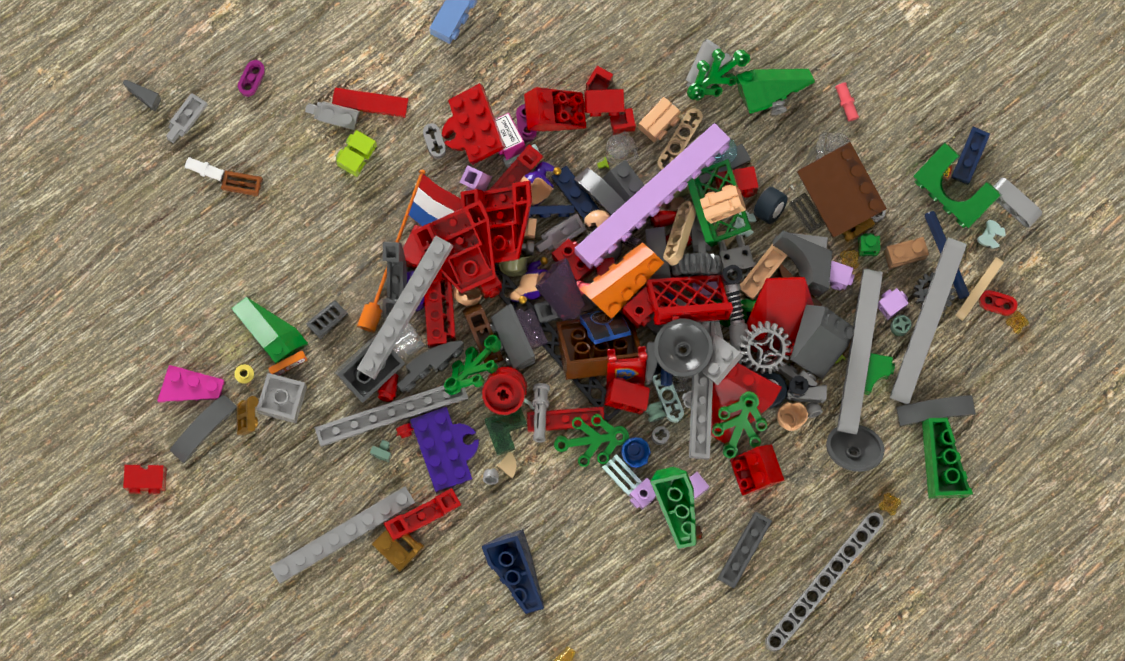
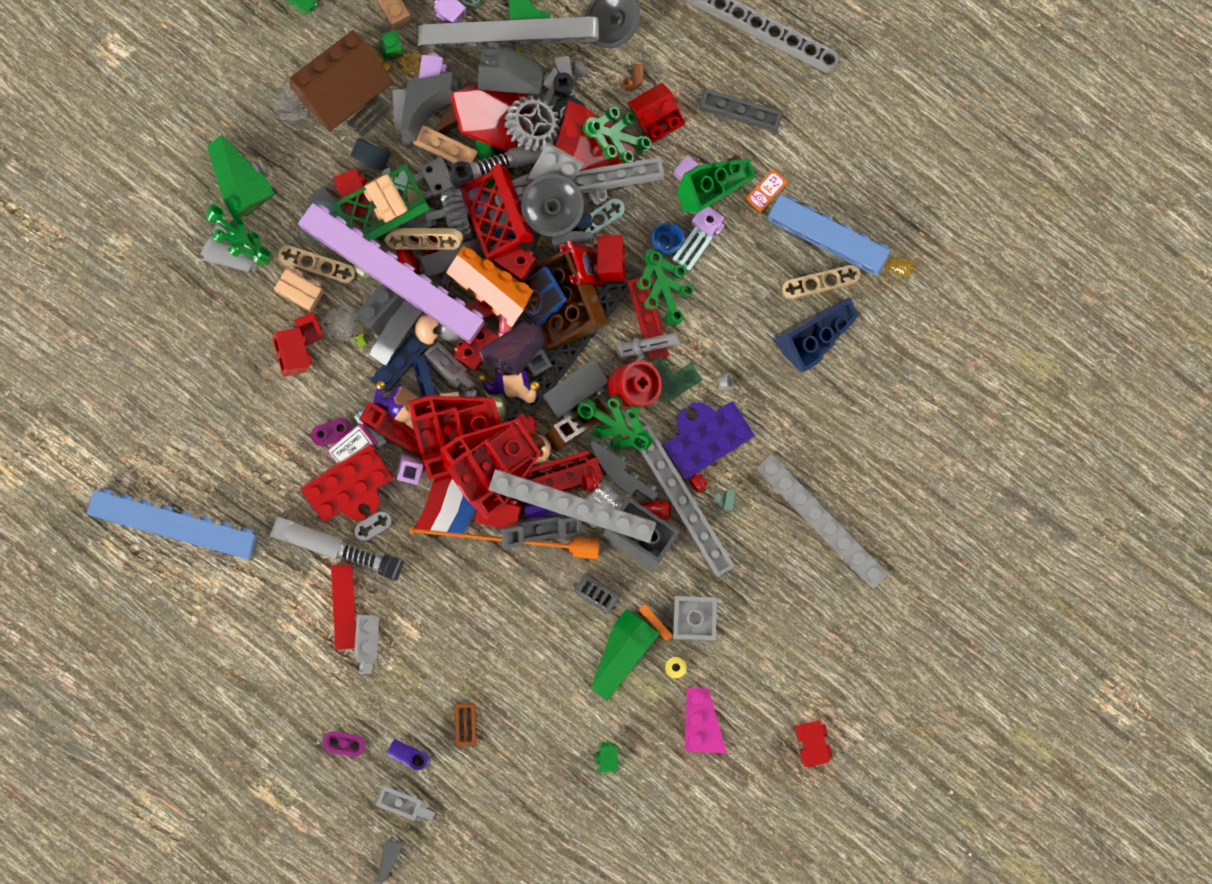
camera: 100 degrees left, 5 degrees up
(179, 296) = (607, 757): none -> green brick
(202, 427) = (743, 696): dark grey slope -> none
(204, 169) = (459, 768): white pin -> none
(228, 128) = (406, 754): none -> dark purple piece
(246, 416) = (730, 650): pearl gold plate -> none
(353, 156) = (415, 611): lime piece -> none
(395, 552) = (826, 464): pearl gold plate -> none
(422, 515) = (782, 442): red slope -> none
(424, 329) = (589, 482): none -> red plate
(446, 69) = (334, 547): none -> piece
(508, 465) = (709, 367): tan tile -> none
(531, 328) = (560, 372): clear purple bracket -> none
(554, 110) = (312, 403): red slope -> none
(567, 586) = (819, 278): none -> tan beam
(599, 79) = (267, 363): red panel -> none
(605, 601) = (829, 235): none -> medium blue brick
(655, 412) = (620, 226): sand green wheel -> none
(656, 431) = (637, 222): light grey bush -> none
(662, 556) = (766, 190): none -> tile
(792, 416) = (592, 87): light nougat hair -> none
(792, 458) = (636, 80): none -> dark orange arm
(847, 102) = (237, 98): coral pin -> none

